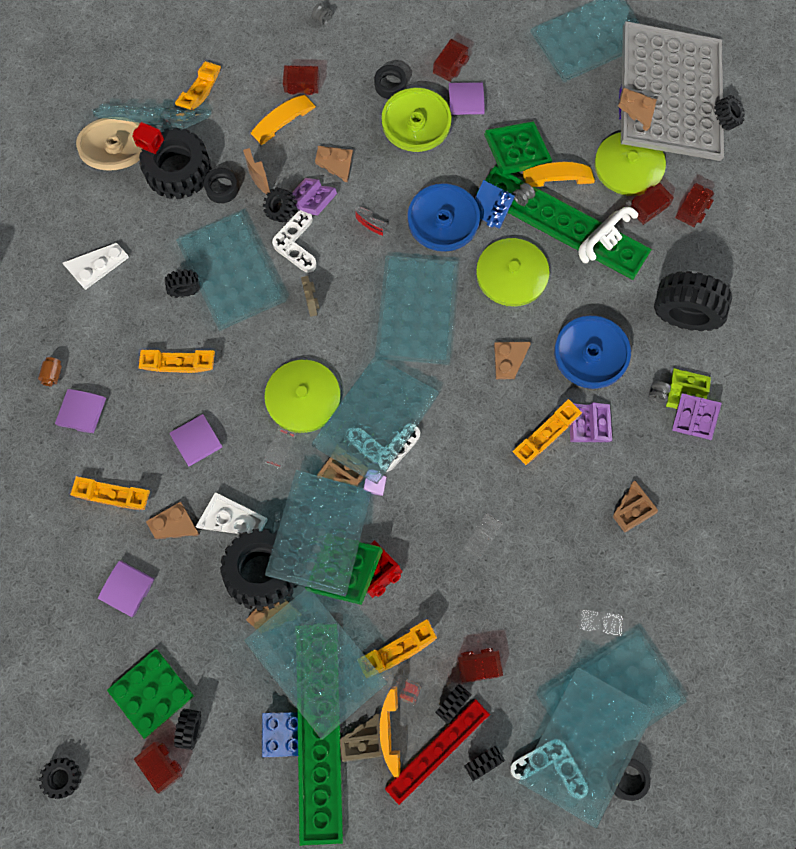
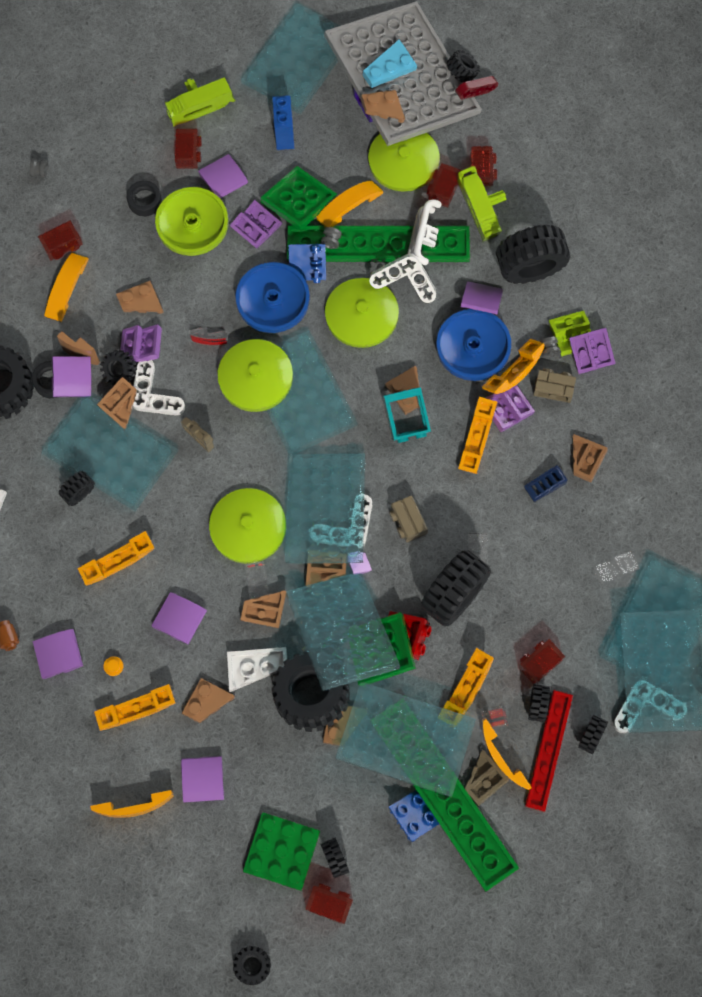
camera: 30 degrees left, 0 degrees up
(34, 567) = (158, 800): none -> light orange slope
(117, 448) = (113, 666): none -> light orange plate
(236, 190) = (71, 376): none -> medium lavender slope
(261, 233) = (119, 402): none -> medium nougat wing
(269, 475) = (264, 610): none -> medium nougat wing
(387, 273) = (255, 375): none -> lime dish
(440, 554) = (455, 587): none -> black tyre
(441, 470) = (408, 519): none -> dark tan brick
(469, 151) = (256, 224): none -> medium lavender slope
(479, 396) = (419, 433): none -> teal window
(484, 27) = (198, 101): none -> lime piece
(543, 78) = (283, 122): none -> blue window
(573, 257) = (410, 271): none -> white beam
(582, 517) = (542, 478): none -> dark blue slope
(620, 396) = (518, 370): none -> light orange slope
(624, 316) = (482, 297): none -> medium lavender slope
(643, 428) = (555, 385): none -> dark tan brick
(664, 78) = (389, 65): none -> medium azure wing
(673, 234) = (480, 203): none -> lime piece
(730, 135) = (476, 87): none -> dark red beam

